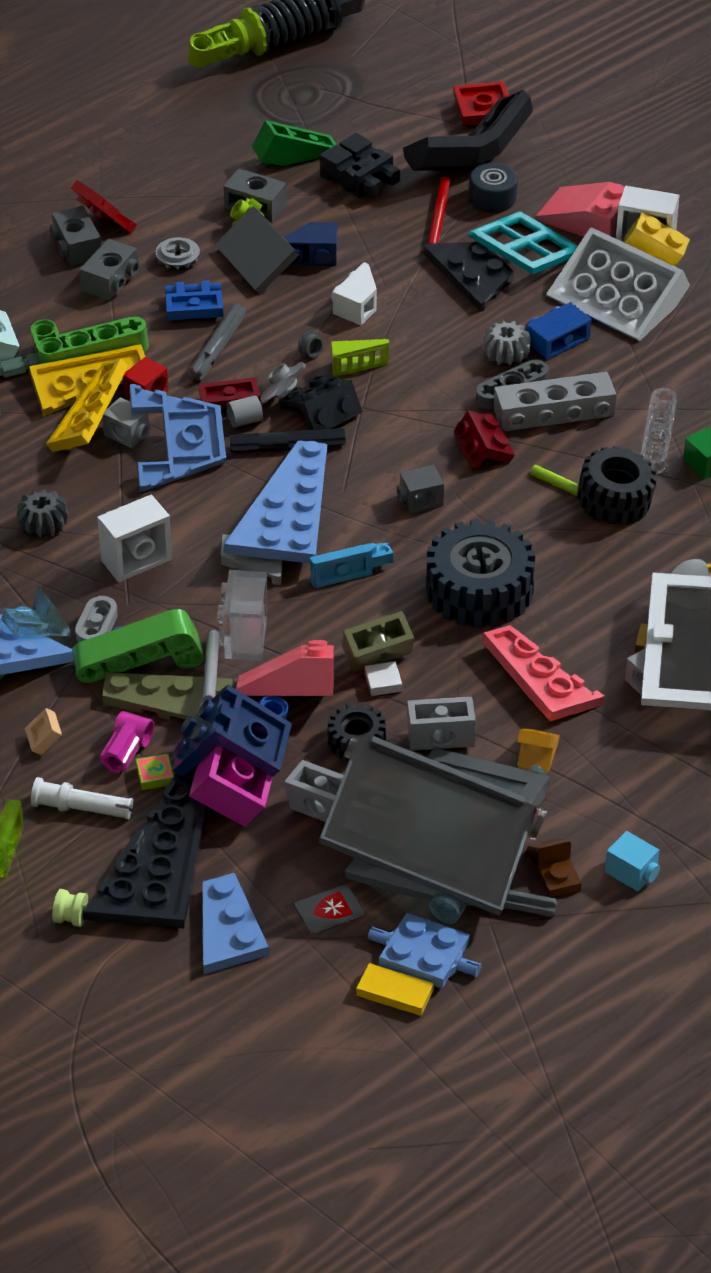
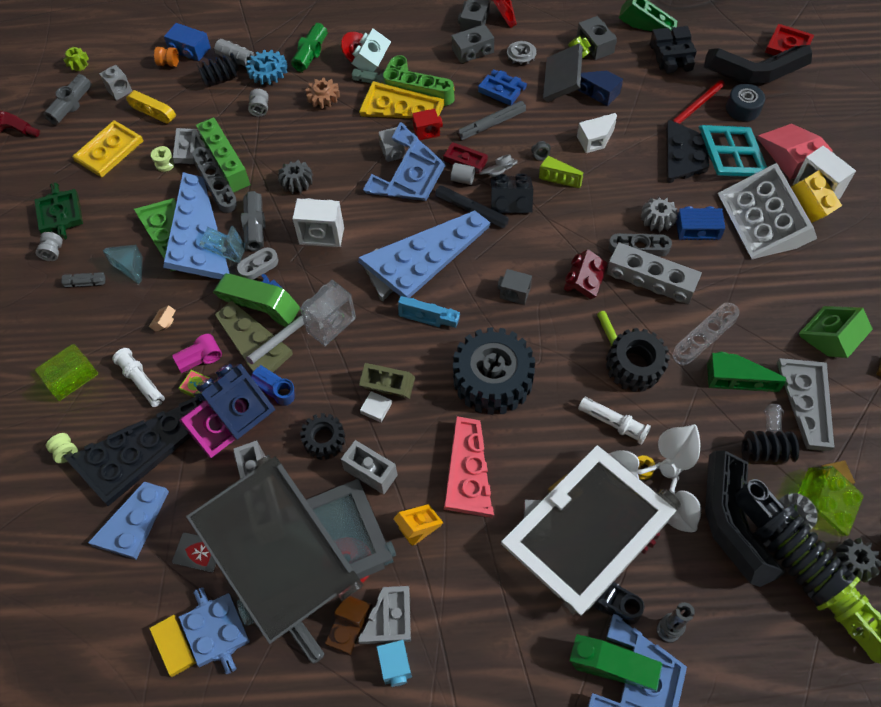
camera: 40 degrees right, 15 degrees up
(33, 576) = (253, 221): none -> dark grey piece
(89, 408) = (378, 123): yellow wing -> none
(299, 672) = (317, 373): coral slope -> none
(589, 832) = (389, 618): none -> light grey wing
(657, 551) = (624, 424): none -> white pin

